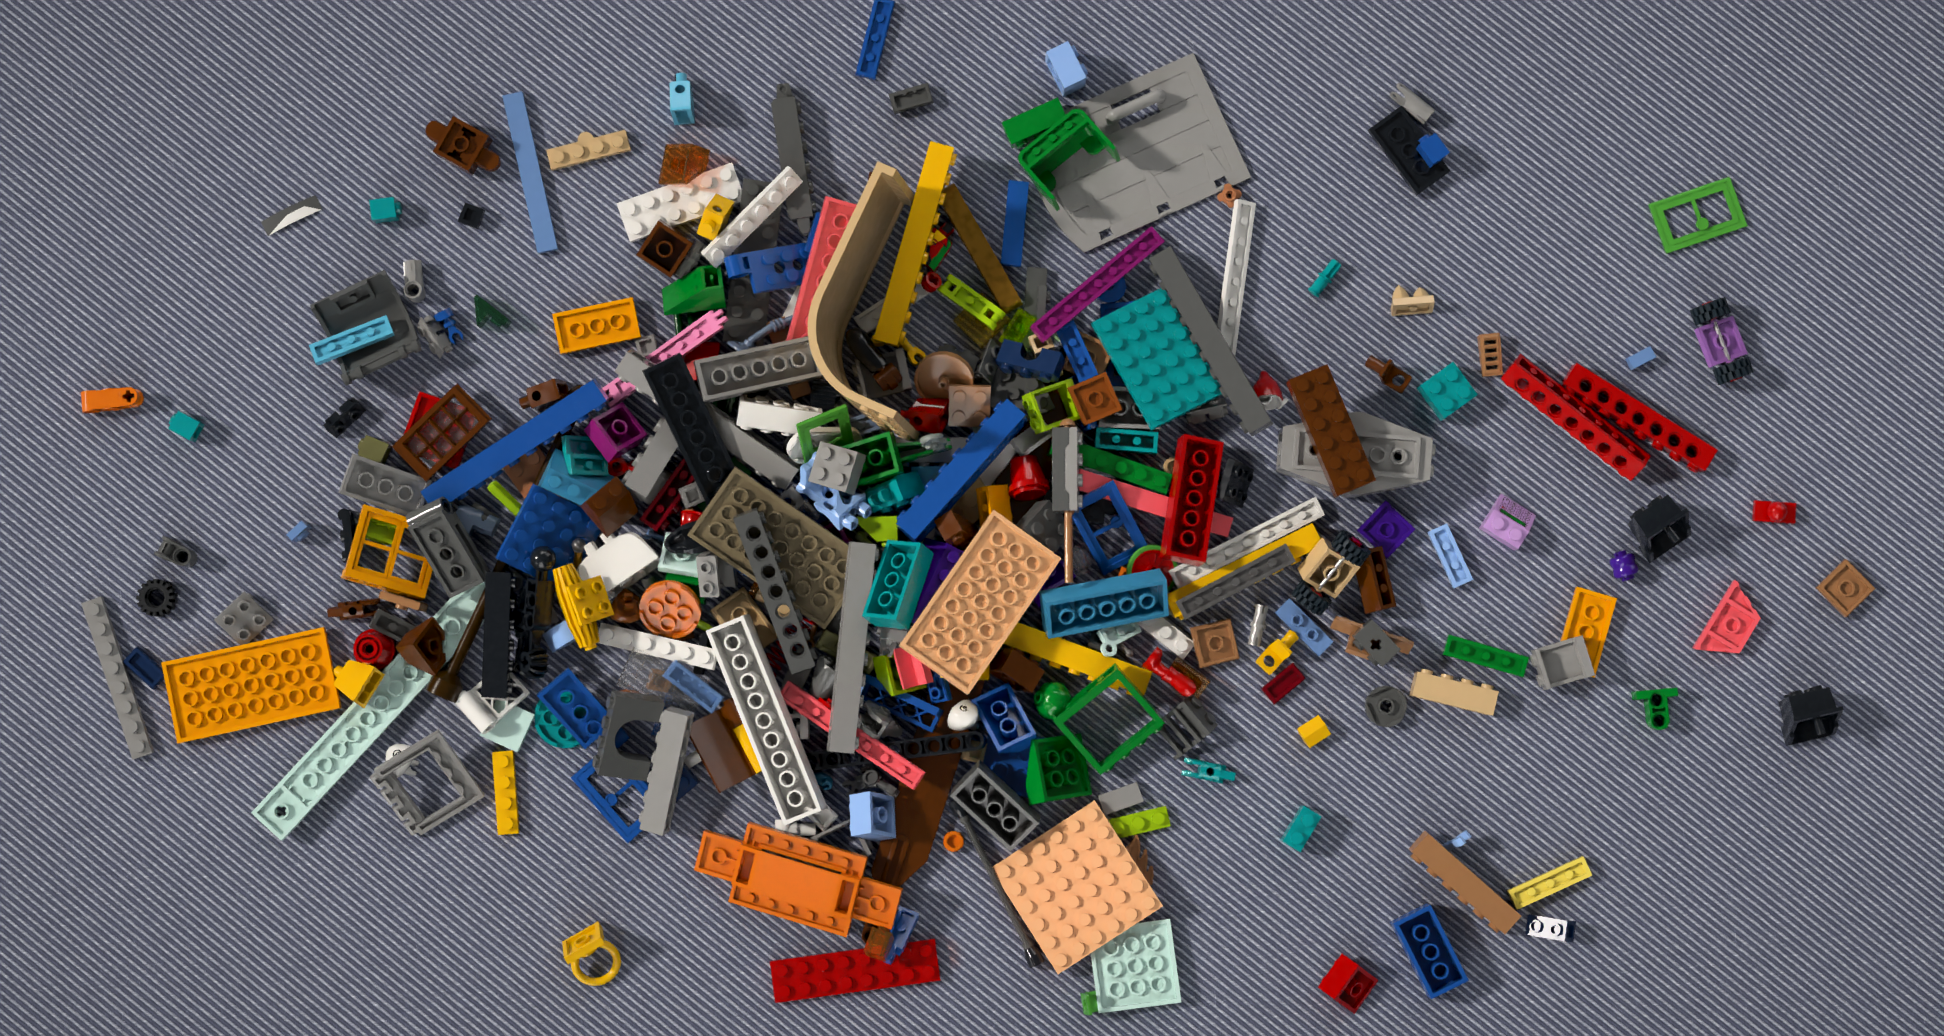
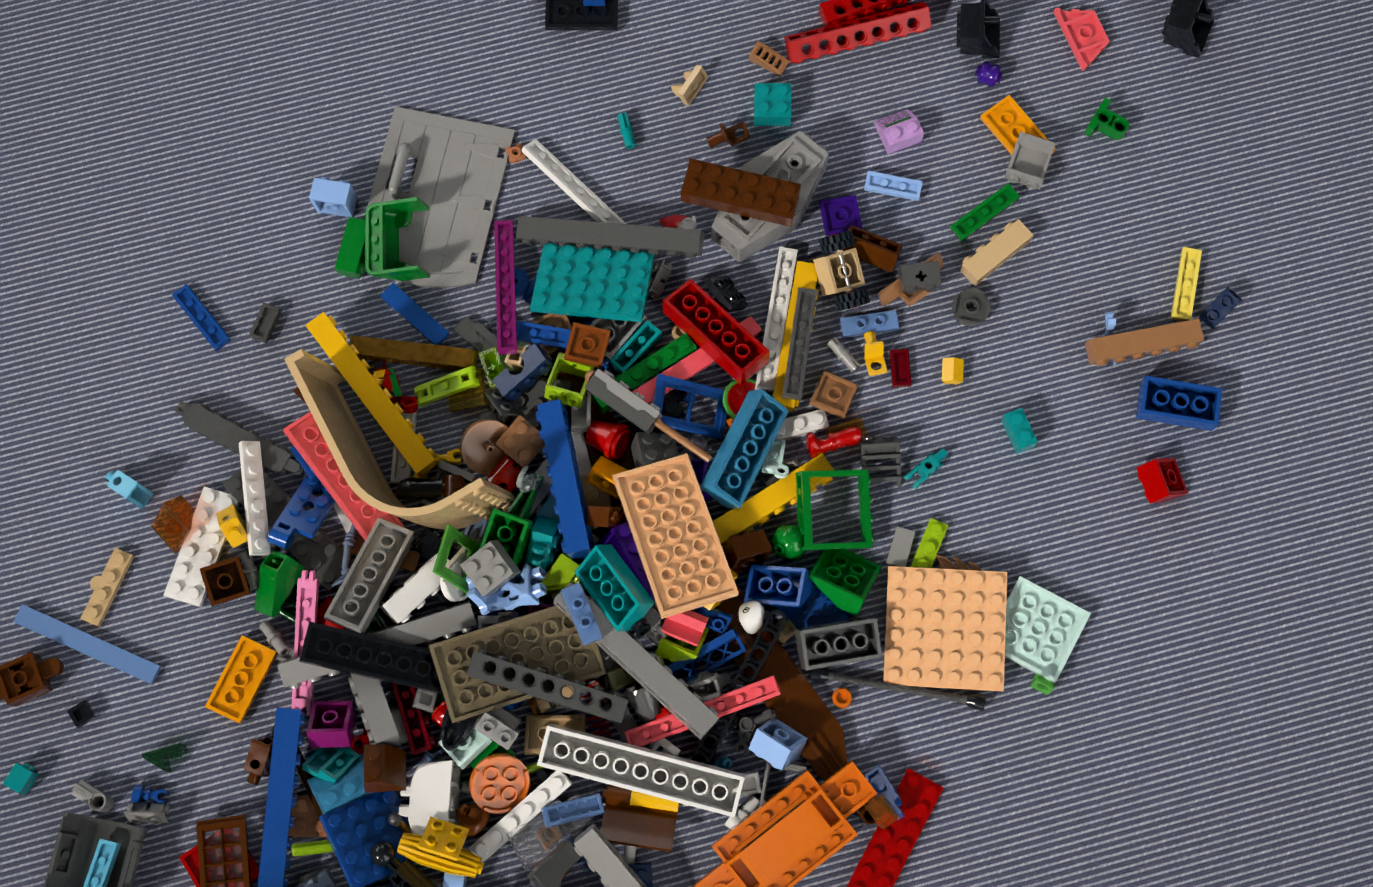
camera: 50 degrees left, 10 degrees down
(650, 326) = (274, 638): none -> light grey pin
(854, 574) = (581, 614): none -> medium blue plate
(881, 632) = (641, 627): none -> black bush

